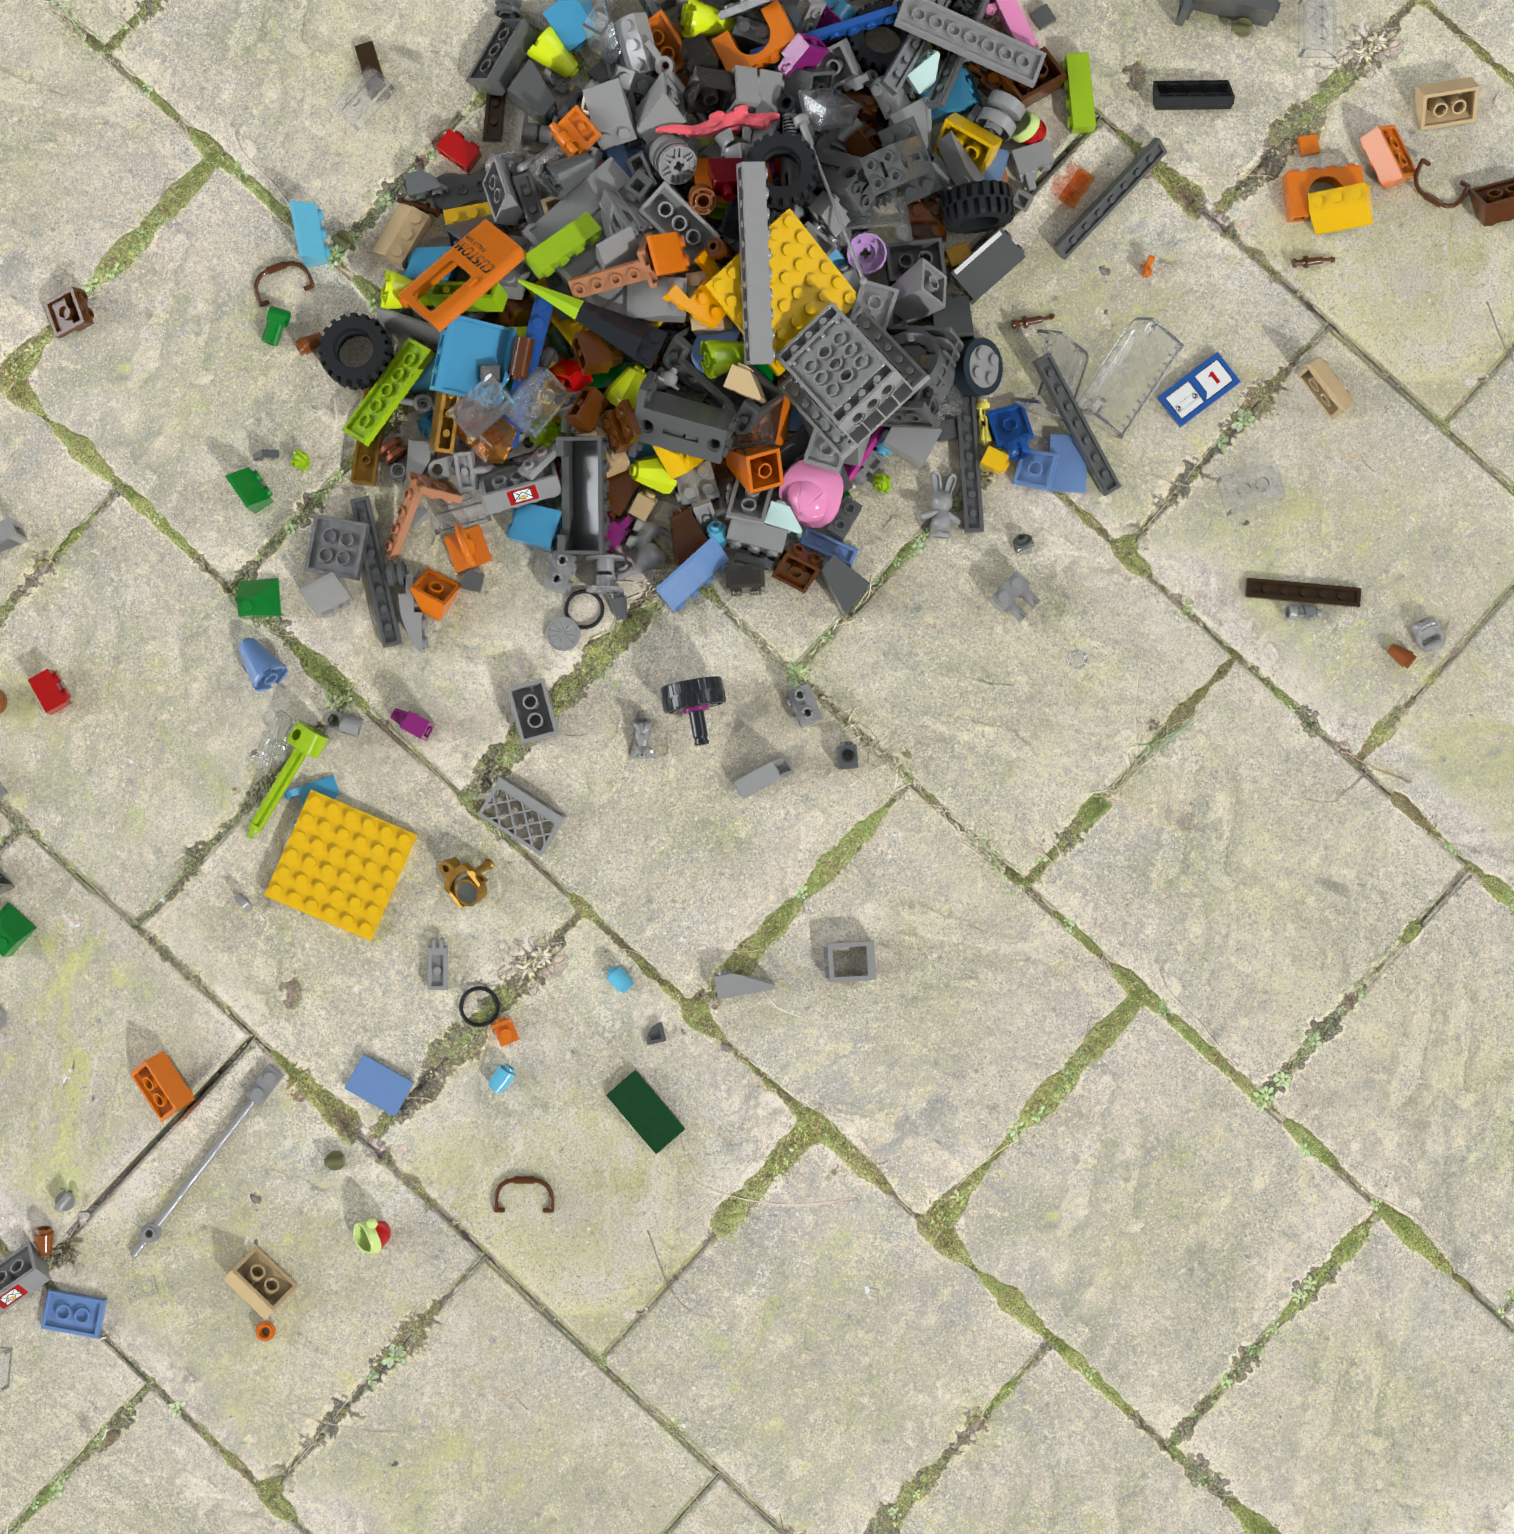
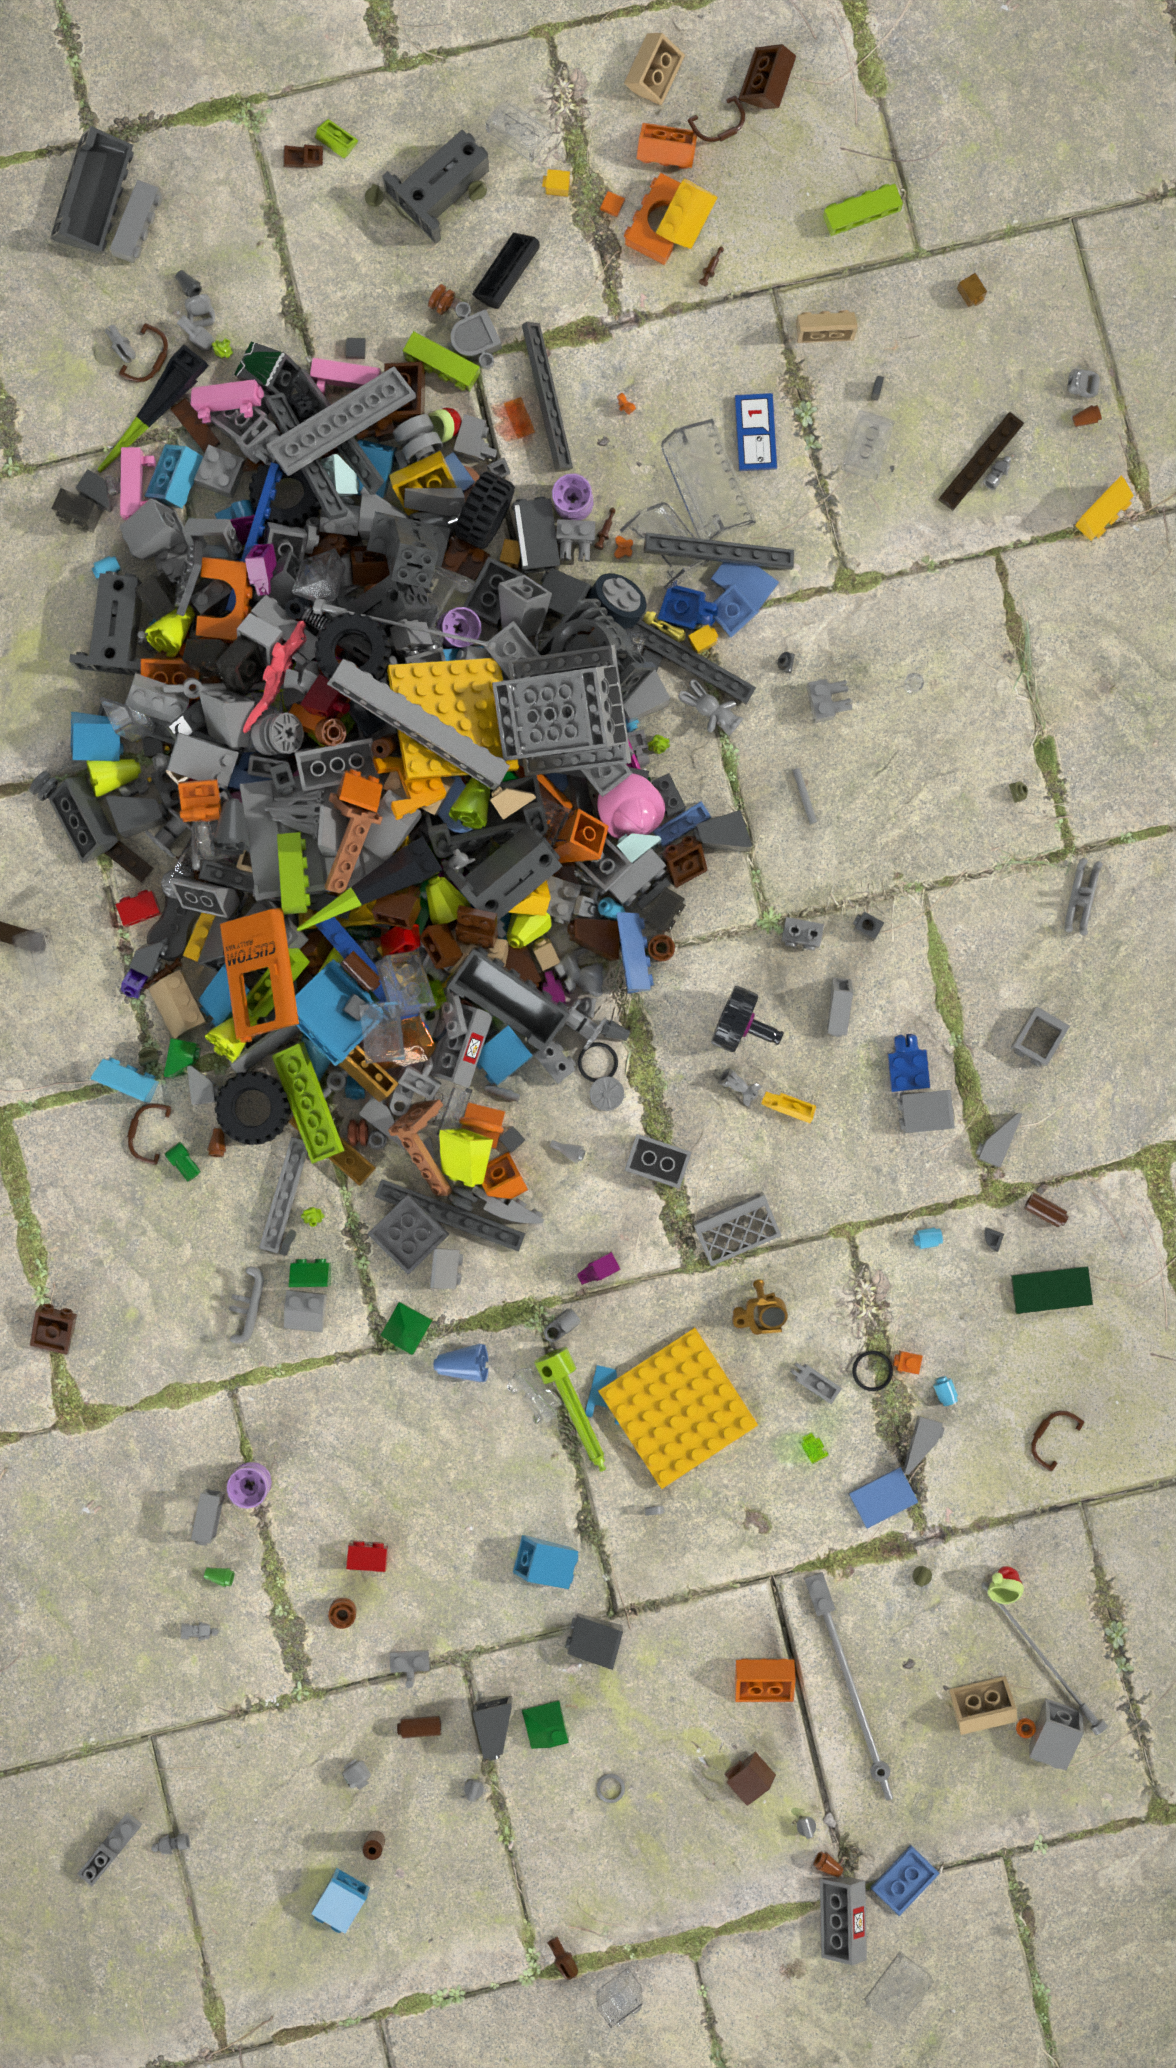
camera: 55 degrees left, 0 degrees up
(34, 554) = (245, 1495): none -> lavender wheel
(73, 1128) = (750, 1778): none -> reddish brown plate
(103, 923) = (594, 1640): none -> dark grey slope
(141, 840) = (545, 1562): none -> dark azure slope
(195, 461) = (254, 1302): none -> light grey piece
(219, 505) = (304, 1310): none -> light grey slope
(276, 1360) = (1056, 1734): none -> light grey slope
(301, 426) = (284, 1196): none -> light grey plate
(307, 1390) = (1098, 1726): none -> light grey piece
(346, 298) = (201, 1087): none -> light grey slope
(358, 264) = (180, 1056): none -> green slope
(381, 999) = (813, 1448): none -> clear neon green brick
(394, 188) = (133, 983): none -> dark purple bracket
(431, 548) = (464, 1155): none -> neon yellow slope
(450, 1086) = (923, 1440): none -> light grey slope
(495, 638) = (573, 1152): none -> light grey cone
(506, 548) = (501, 1092): none -> light grey animal
(653, 791) = (789, 1106): none -> yellow hinge
(708, 1062) = (1046, 1210): none -> reddish brown brick
(720, 603) = (670, 947): none -> dark orange wheel
(723, 906) = (926, 1111): none -> light grey slope
(753, 867) = (908, 1065): none -> blue plate
(920, 633) = (804, 795): none -> light grey bar
(992, 919) = (1082, 896): none -> light grey piece
(1011, 296) = (575, 533): none -> light grey brick
(1026, 346) = (624, 547): none -> orange piece
(1042, 265) = (571, 487): none -> lavender wheel
(1045, 807) = (1019, 791): none -> olive plate
(1118, 105) = (474, 336): none -> light grey piece
(1131, 58) = (441, 299): none -> dark orange wheel
(1294, 87) = (557, 182): none -> yellow brick
(1305, 464) = (877, 388): none -> dark grey tile
(1333, 721) = (1105, 509): none -> yellow slope
(1442, 488) = (972, 290): none -> pearl gold brick
(1447, 353) = (862, 209): none -> lime brick

